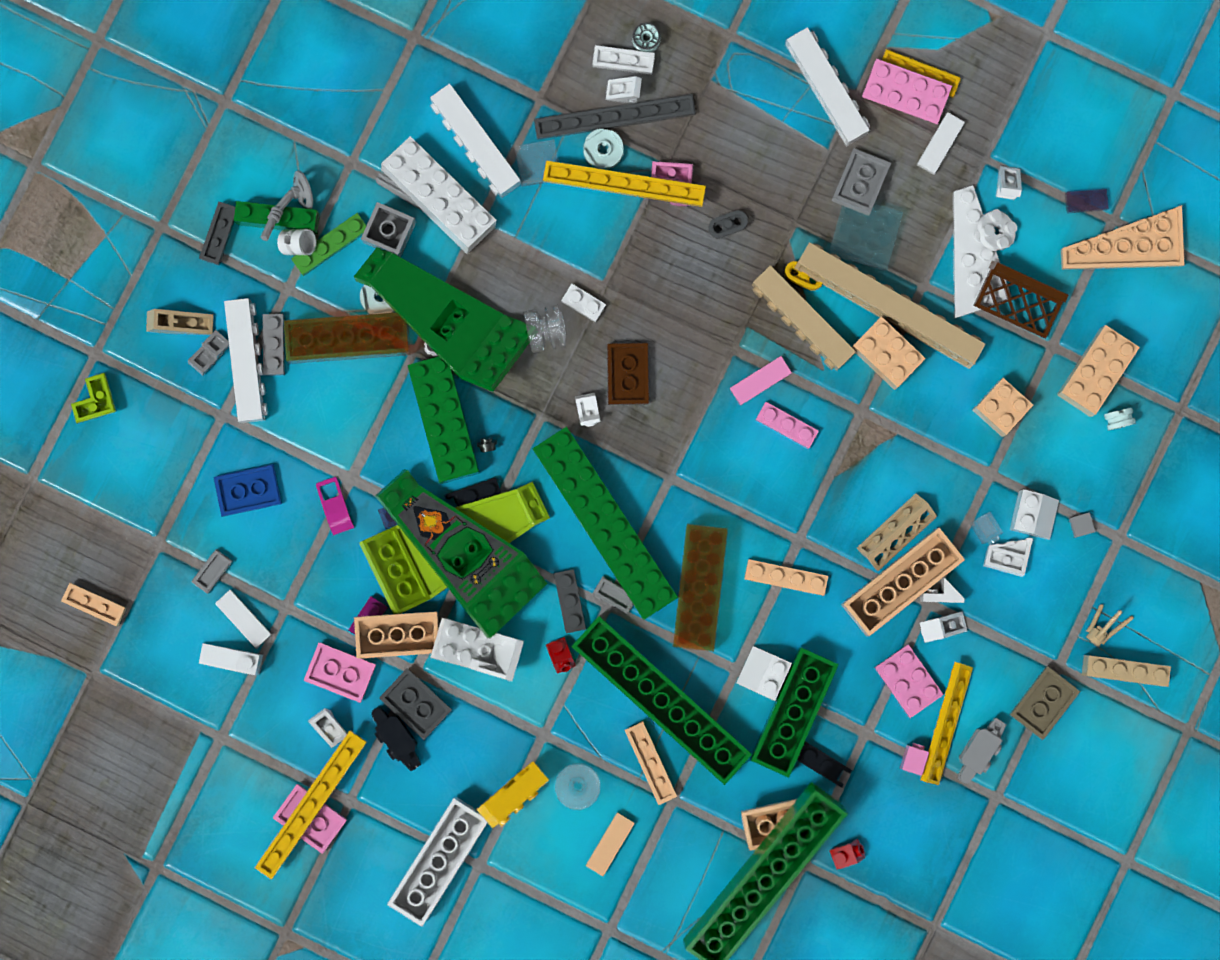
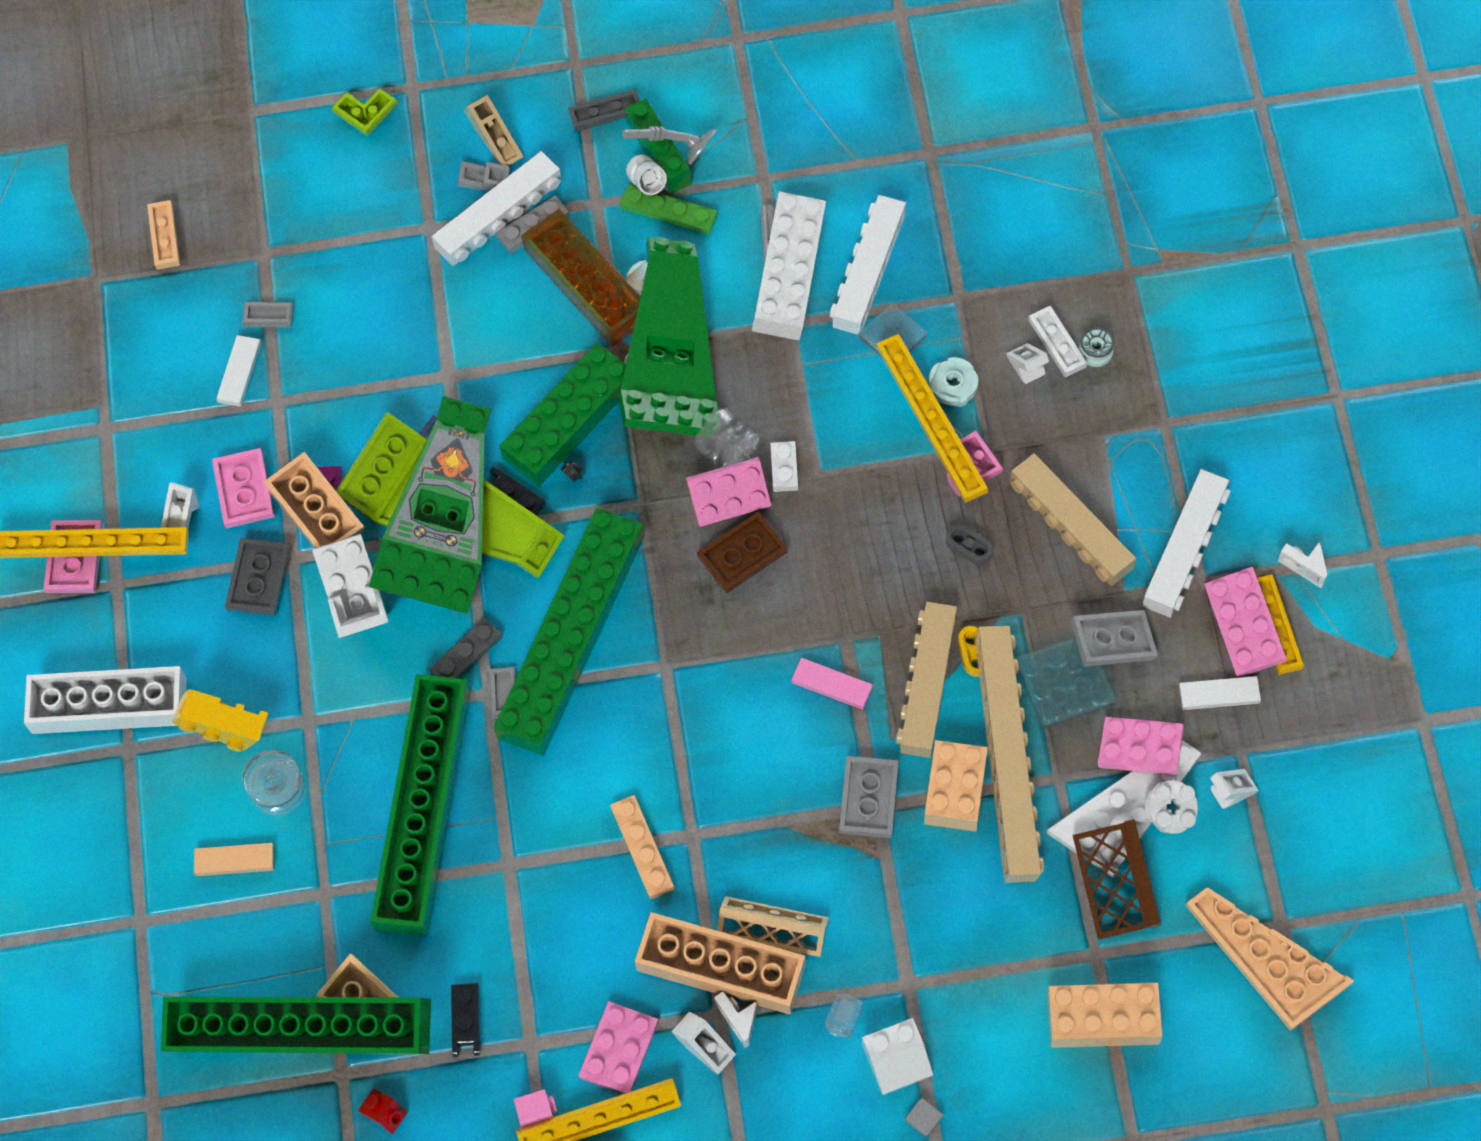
camera: 60 degrees right, 20 degrees down
(231, 659) = (191, 386): white slope -> none
(247, 490) = (371, 294): blue tile -> none
(335, 509) = (406, 380): dark pink piece -> none
(388, 229) = (719, 244): light grey brick -> none
(397, 738) = (209, 581): black hinge -> none
(560, 655) = (400, 680): red bracket -> none
(581, 353) = (728, 492): none -> bright pink plate
(587, 409) = (677, 538): white bracket -> none
(614, 117) = (996, 373): dark grey tile -> none
(650, 763) = (347, 841): light nougat plate -> none
(700, 587) = (567, 763): clear orange brick -> none
(759, 146) = (1072, 520): none -> tan brick
(764, 673) = (522, 893): white slope -> none
(787, 425) = (805, 740): bright pink plate -> none
(794, 712) = (499, 945): green brick -> none
(855, 412) = (868, 797): none -> light grey plate
(900, 21) = (1310, 567): none -> white slope
(943, 219) = (1141, 745): none -> bright pink plate
(1002, 407) = (987, 941): light nougat brick -> none
(1009, 557) = (830, 1061): white wing -> none
(1086, 201) = (1279, 881): clear purple plate -> none
(1120, 419) = (1069, 1074): light aqua wheel -> none

